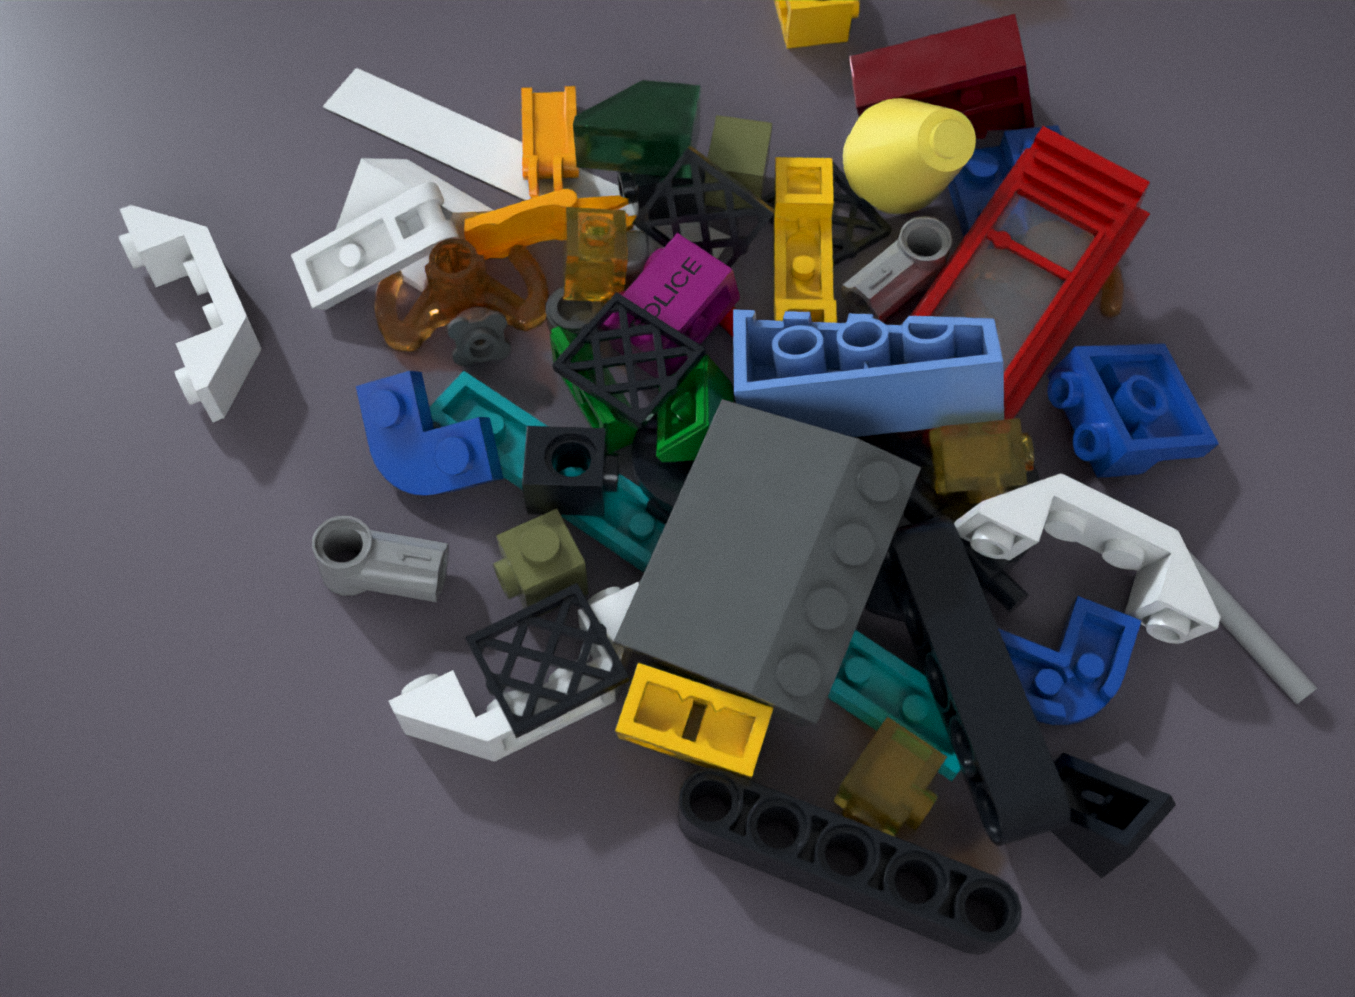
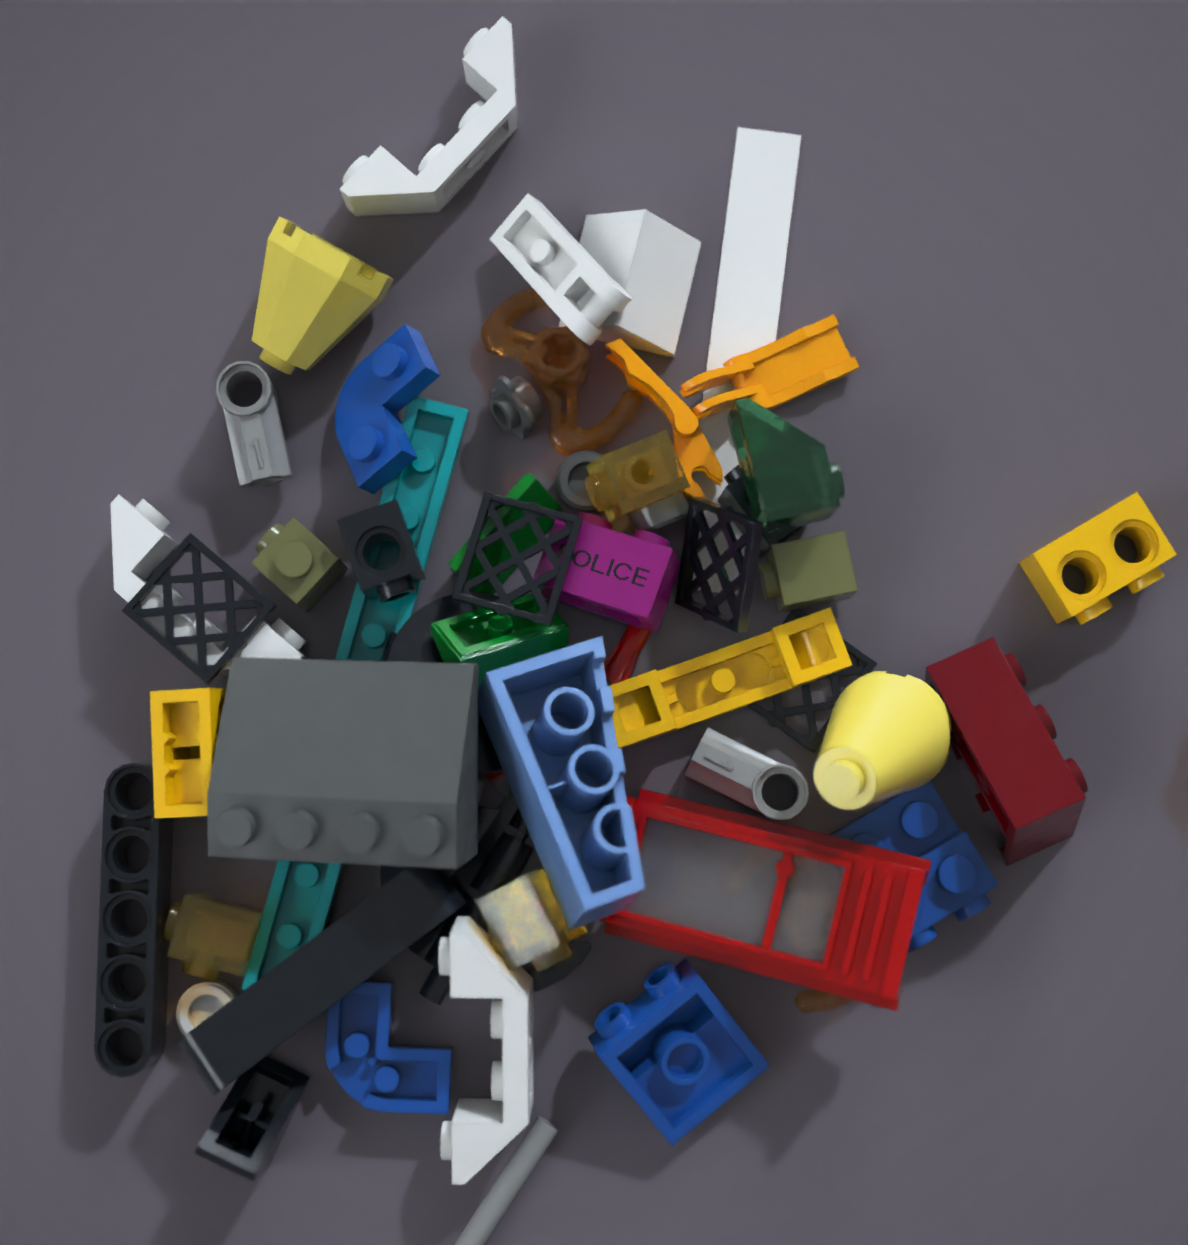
camera: 70 degrees right, 20 degrees up
(279, 451) = (310, 297): none -> light yellow cone
(959, 831) = (201, 1002): none -> white tile

